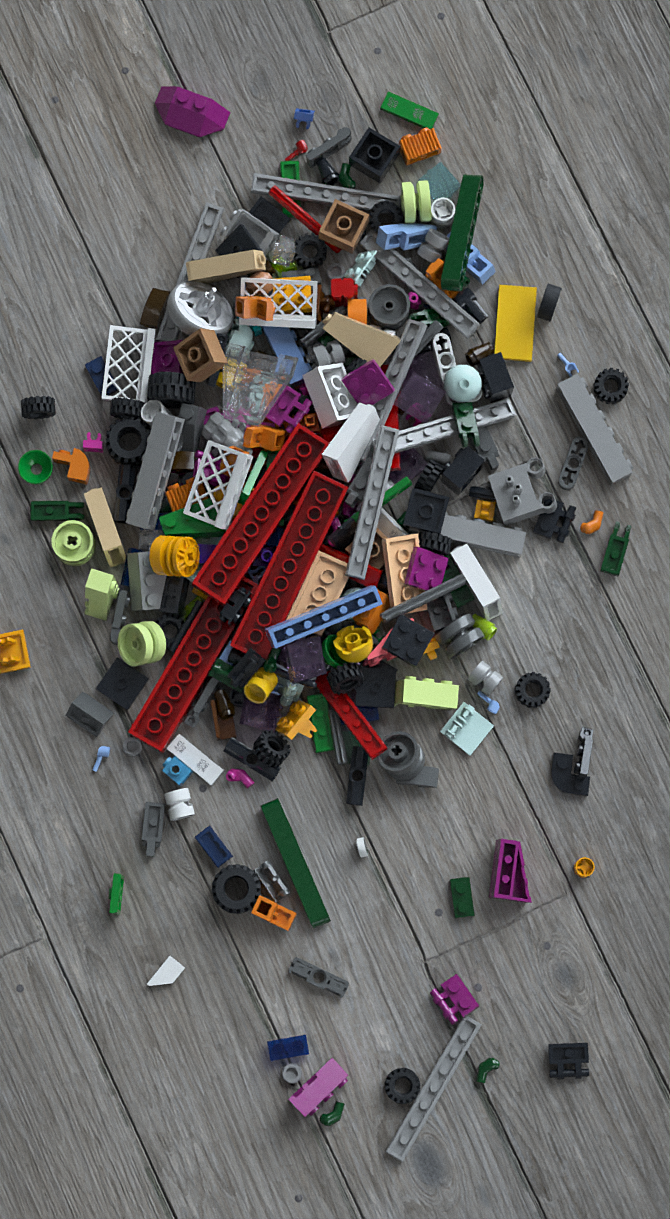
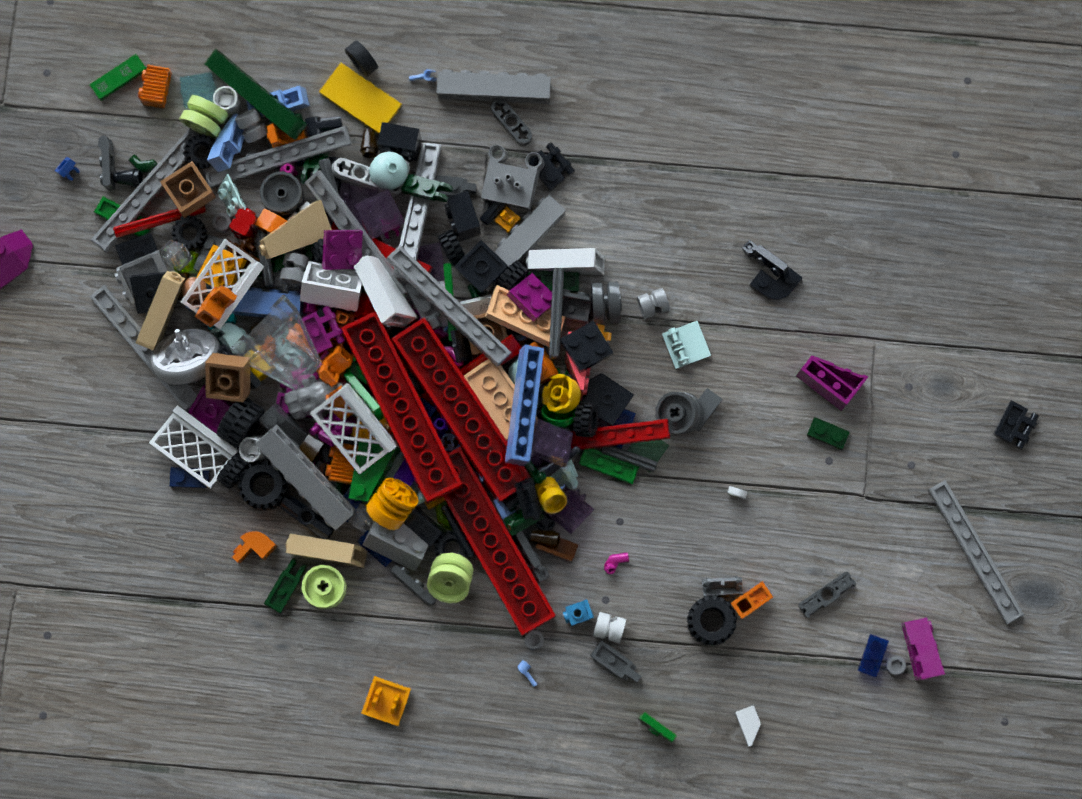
camera: 60 degrees left, 0 degrees up
(31, 458) = (228, 574): green piece -> none
(38, 407) = (184, 548): black tyre -> none
(89, 713) = (483, 660): dark grey panel -> none
(93, 445) = (247, 519): dark pink tile -> none
(100, 590) = (381, 585): yellowish green wedge -> none
(122, 683) = (473, 616): black plate -> none
(154, 308) = (157, 395): dark brown slope -> none
(195, 759) = (577, 591): white tile -> none
(213, 846) = (663, 619): dark blue plate -> none
(240, 601) = (471, 484): black hinge -> none
(241, 752) = (618, 536): black piece -> none
(271, 748) = (608, 519): black tyre -> none
(295, 863) = (718, 557): dark green beam -> none
(297, 721) = (596, 483): light orange plate -> none
(301, 149) = (93, 186): red hand -> none
(333, 1117) = (953, 650): dark green arm -> none
(356, 789) = (683, 468): black piece -> none
(374, 155) = (139, 128): black brick -> none
(414, 1085) = (947, 577): black tyre -> none
(426, 693) = (638, 359): yellowish green wedge -> none
(442, 458) = (439, 229): light grey pin -> none
(459, 995) = (911, 484): magenta plate -> none
(485, 1067) = (983, 498): dark green arm -> none
(487, 627) = (608, 276): lime cone -> none
(493, 705) = (680, 311): light blue hand -> none
(532, 678) = (688, 259): black tyre -> none
(584, 867) = (865, 316): light orange wheel -> none
(593, 525) = (575, 136): orange arm -> none
(614, 375) = (468, 61): black tyre -> none
(615, 551) = (608, 131): dark green hinge -> none

